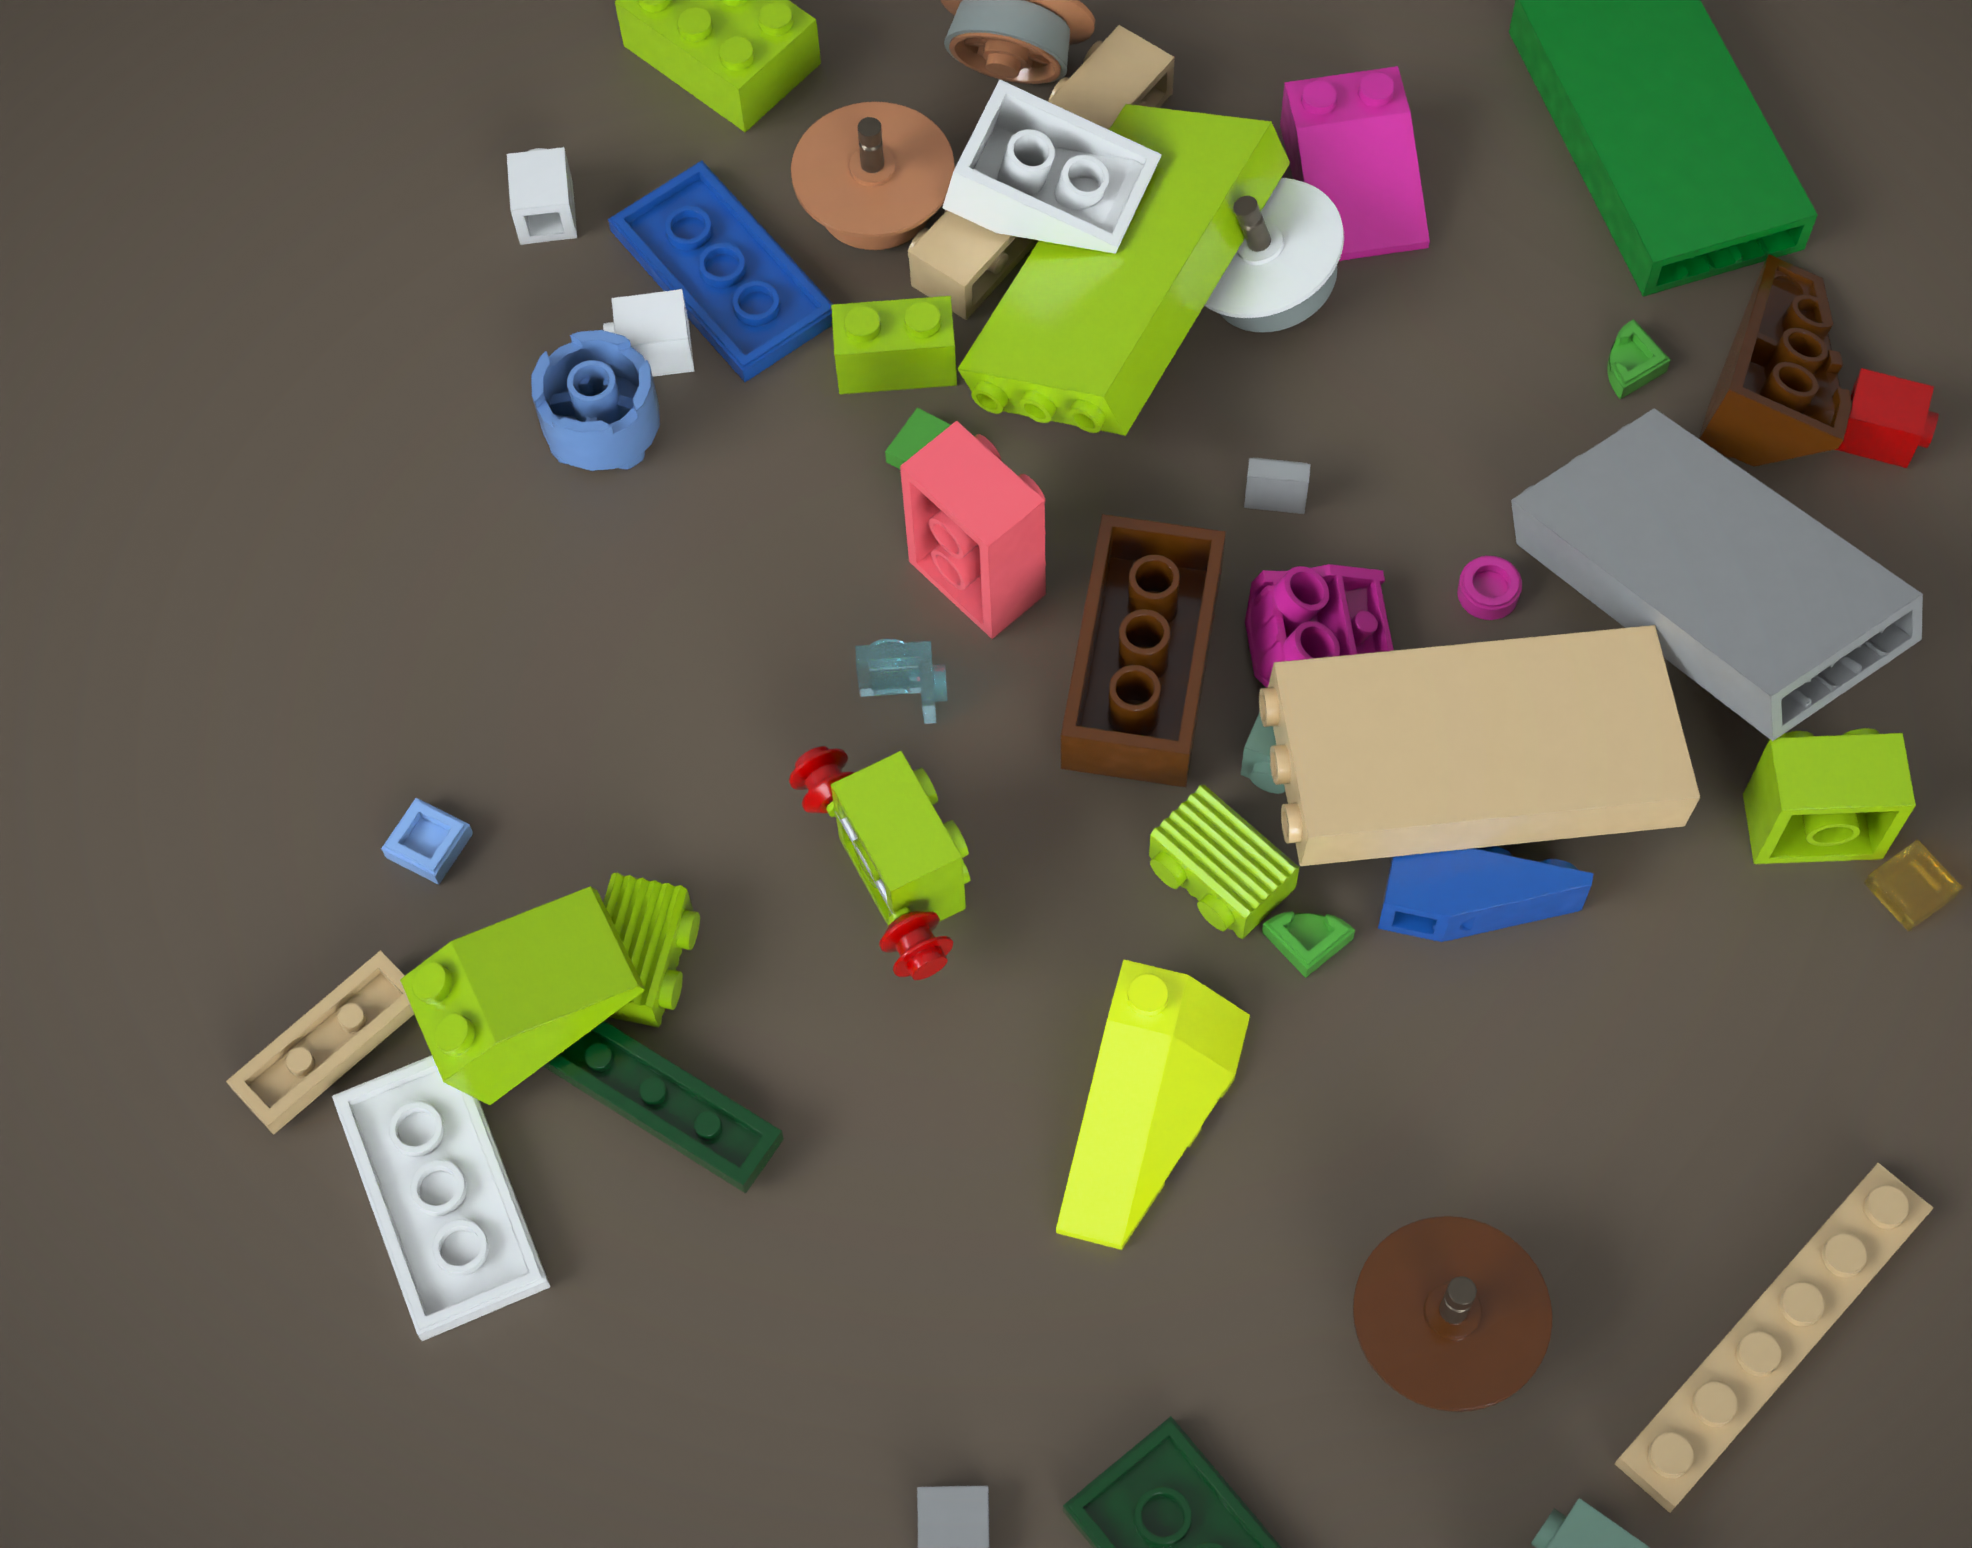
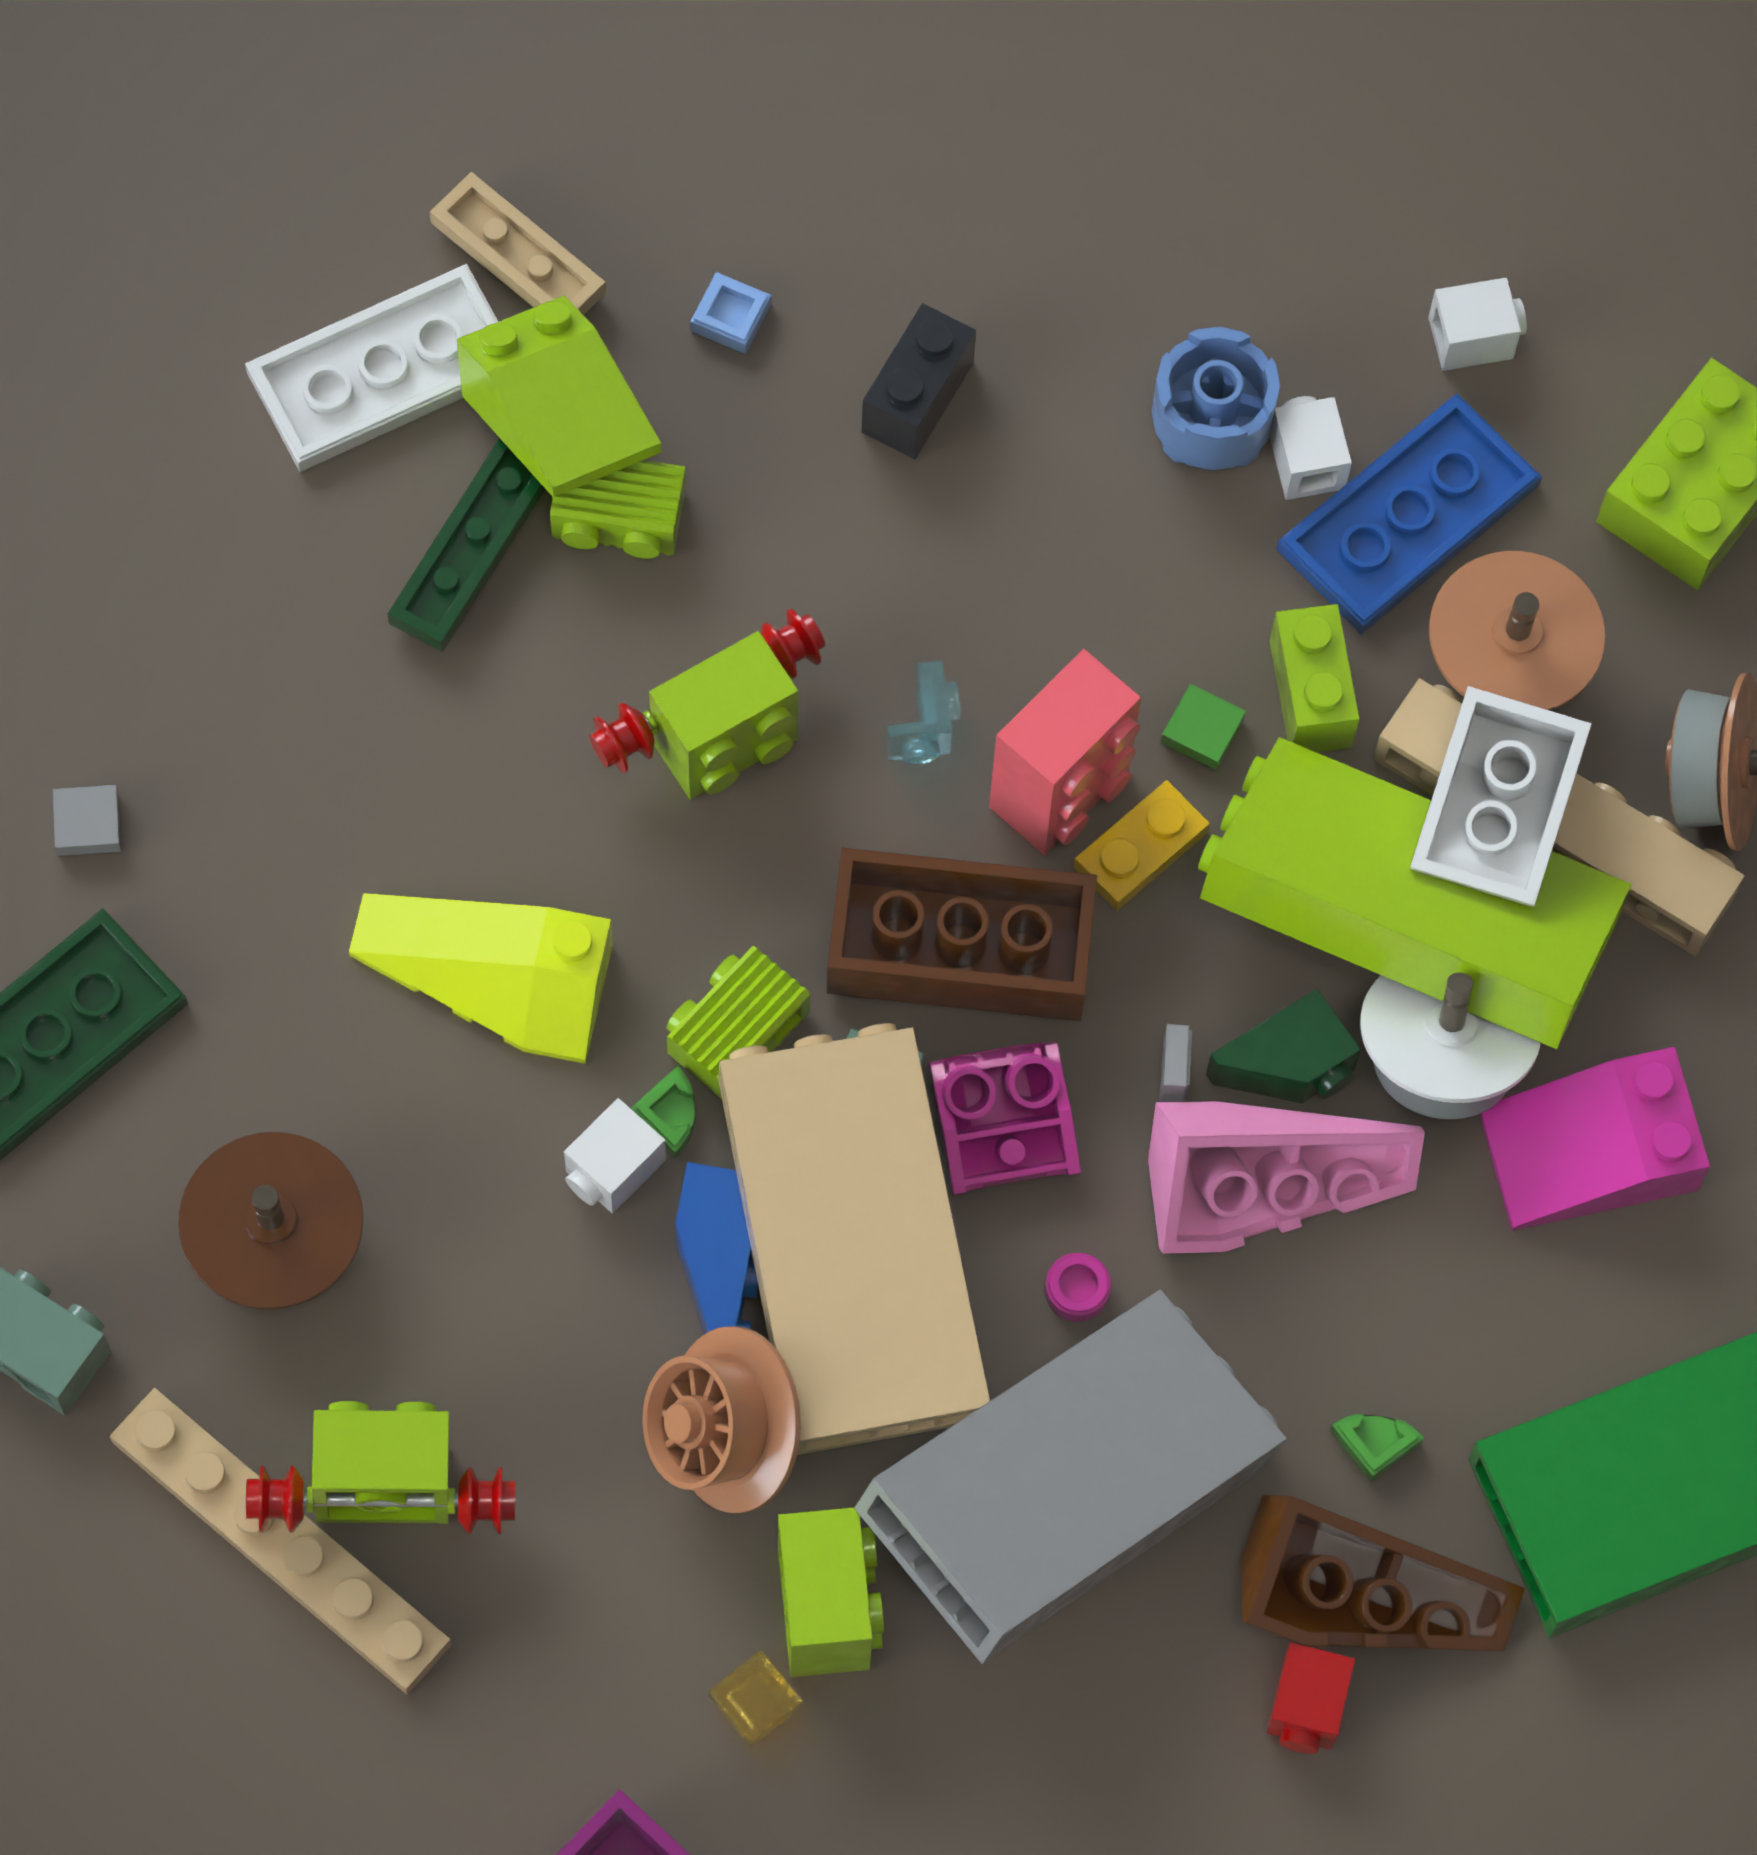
camera: 80 degrees right, 5 degrees up
(538, 660) = (918, 381): none -> black brick
(1069, 521) = (1142, 844): none -> yellow plate
(1264, 388) = (1289, 1054): none -> dark green slope
(1364, 984) = (613, 1157): none -> white brick
(1374, 426) = (1253, 1169): none -> bright pink wedge
(1659, 871) = (724, 1420): none -> nougat piece
(1725, 1212) = (380, 1472): none -> lime brick

